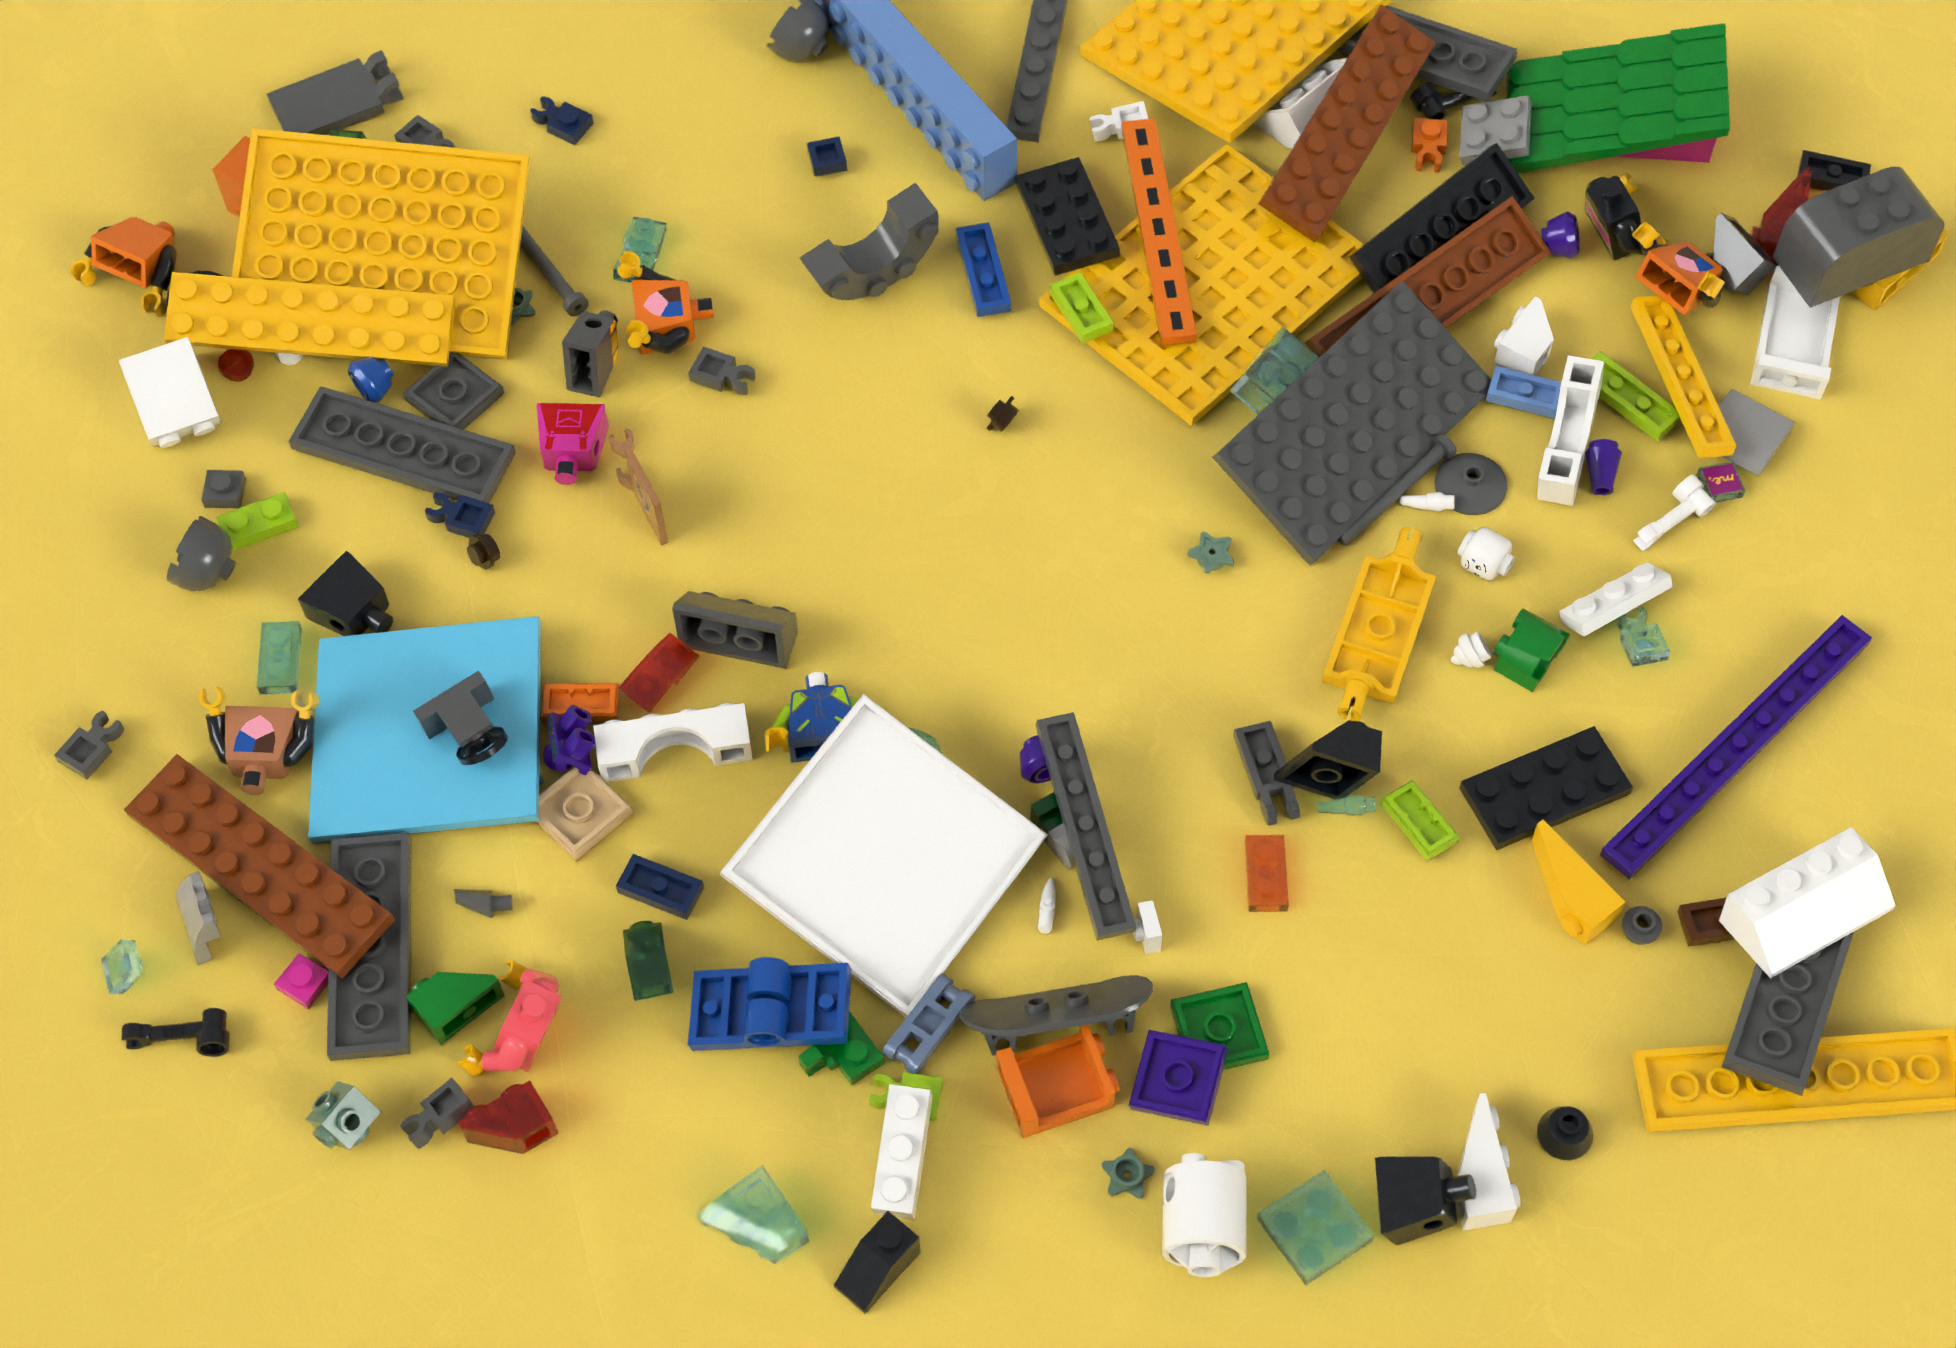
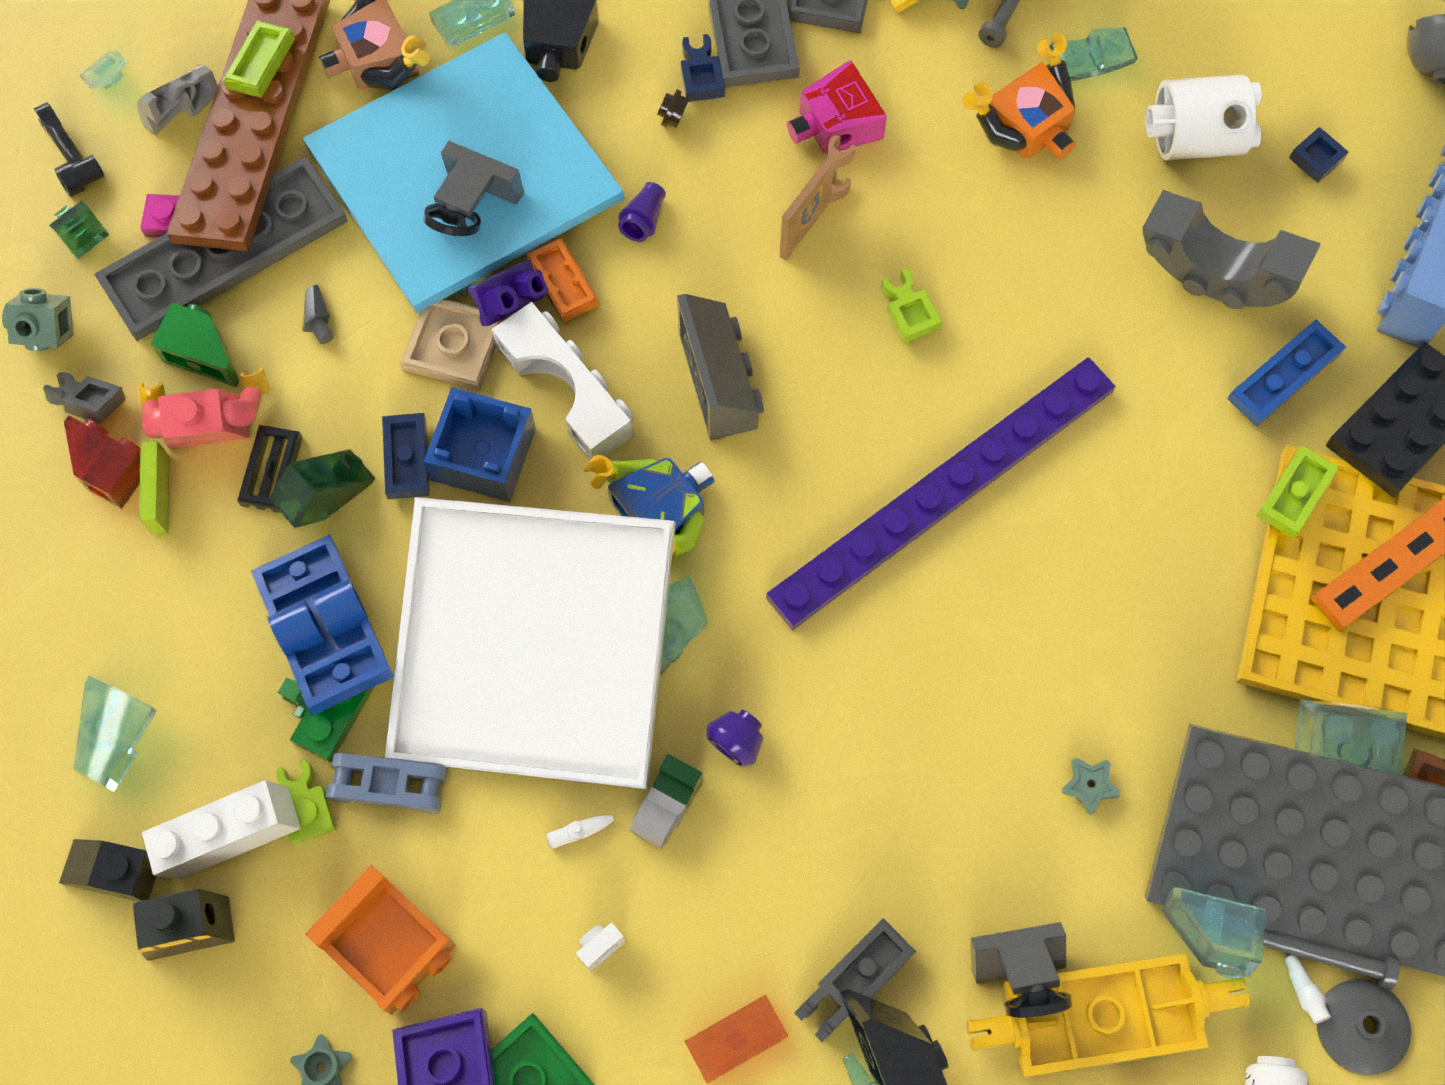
camera: 60 degrees right, 10 degrees up
(217, 827) = (259, 59): none -> lime tile
(270, 1052) = (78, 228): none -> clear green tile
(562, 618) = (641, 214): none -> dark purple cone
(564, 1089) = (154, 487): none -> lime tile
(595, 339) = (942, 72): dark grey torso -> none
(624, 1017) = (262, 501): none -> black tile
(658, 671) = (632, 327): clear red slope -> none
(689, 823) = (480, 444): none -> blue container
(719, 369) = (1000, 194): dark grey plate -> none
(753, 204) = (1191, 119): none -> white cylinder
(773, 477) = (910, 311): none -> lime plate
(932, 537) = (939, 493): none -> dark purple plate
(958, 1218) = (179, 923): none -> pearl dark grey torso
(1002, 414) = (1121, 484): dark brown plate -> none
(1058, 1009) = (454, 901): dark grey piece -> none
(1085, 826) = (666, 822): dark grey plate -> none
(1315, 647) = (1029, 963): none -> dark grey piece
(1362, 524) = (1218, 930): none -> clear light blue slope

